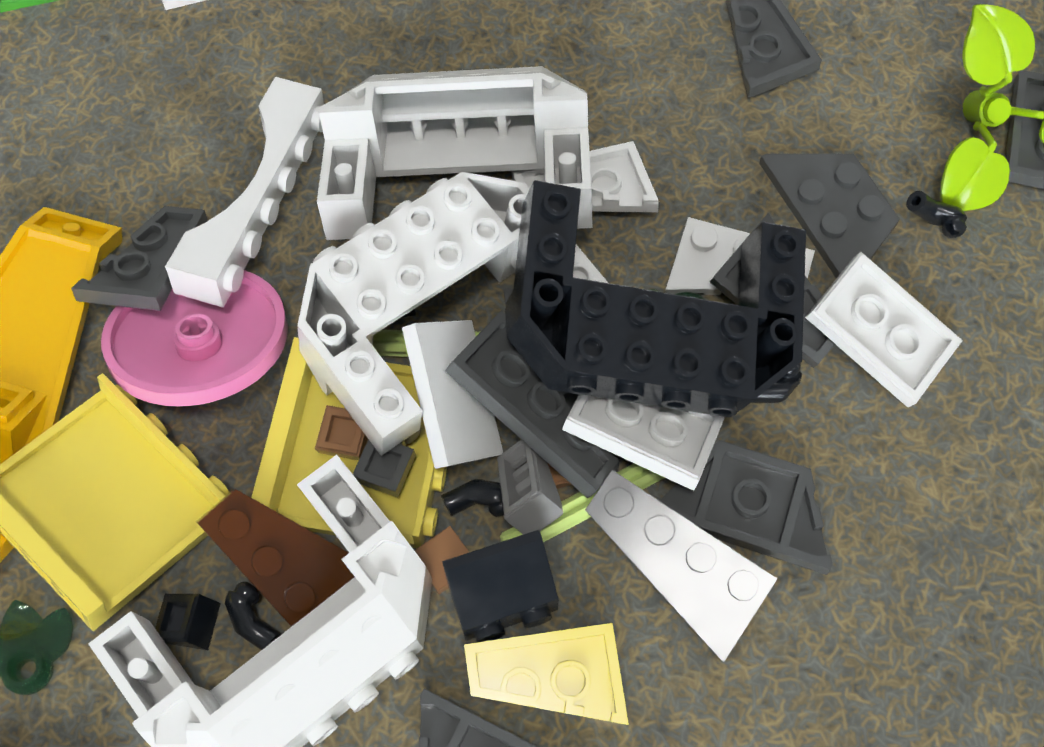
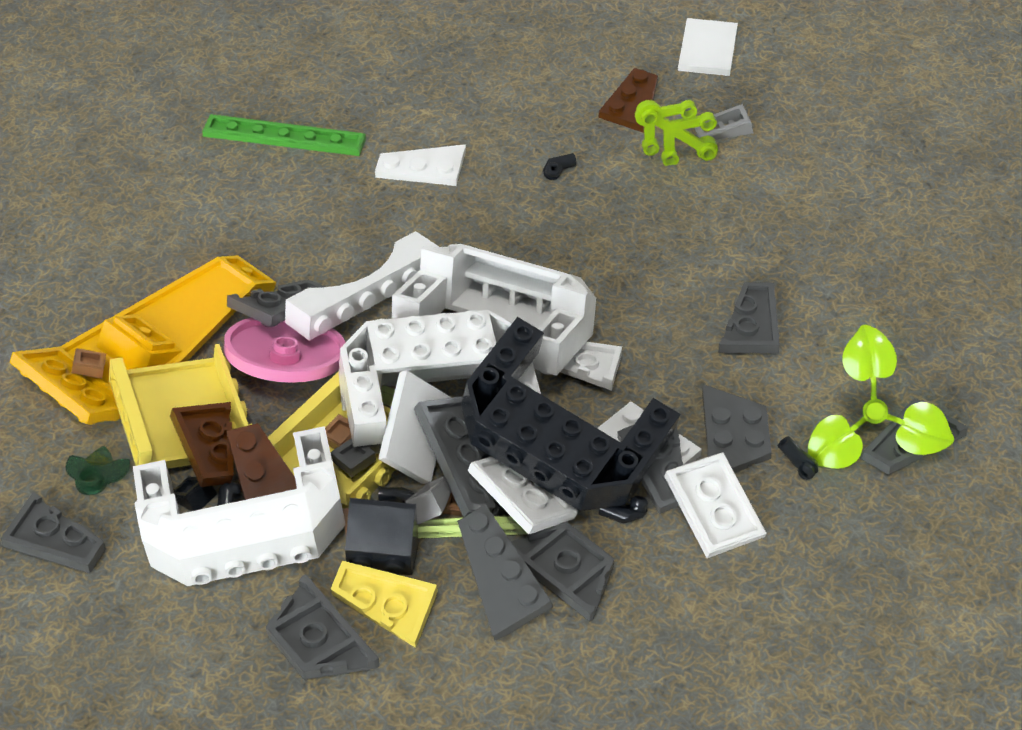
camera: 25 degrees right, 20 degrees down
(160, 533) = (205, 441): none -> reddish brown wing

